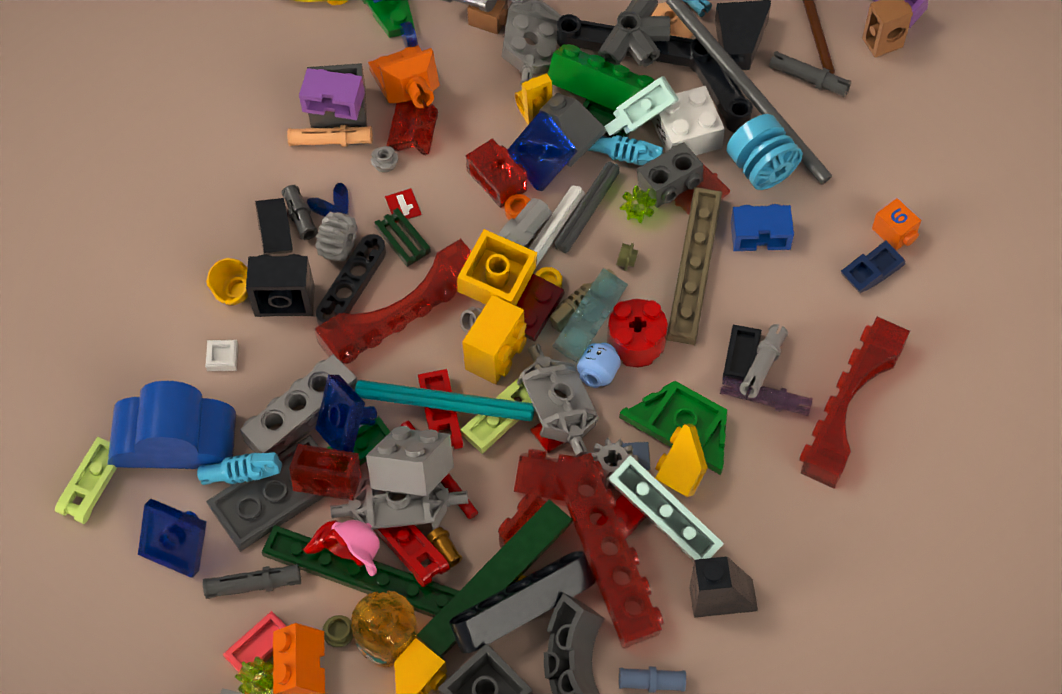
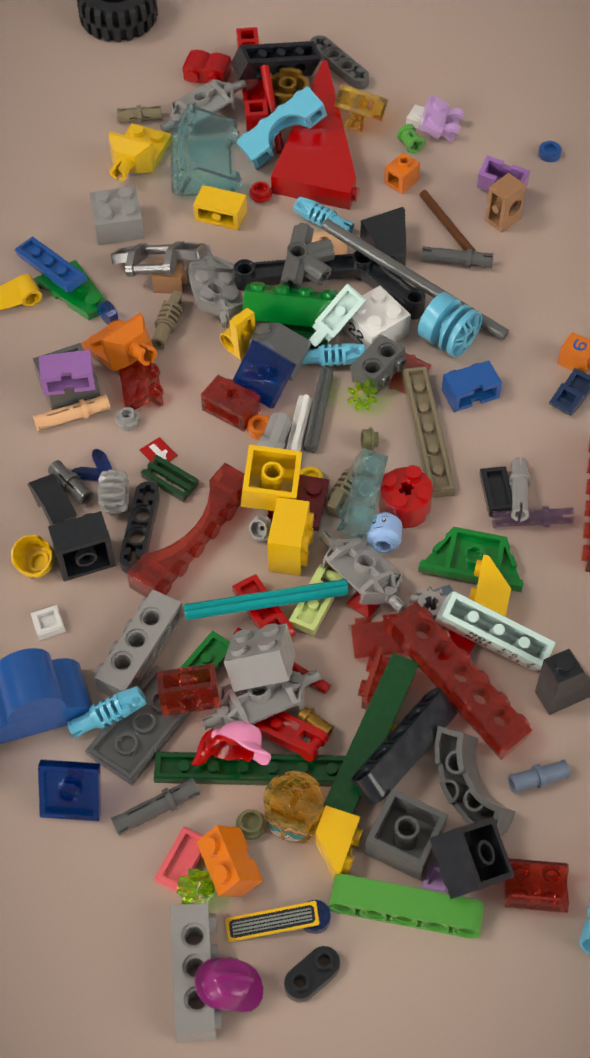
camera: 20 degrees left, 5 degrees down
(342, 414) = (183, 636): clear blue tile -> none
(468, 60) = (167, 319): none -> dark tan hinge

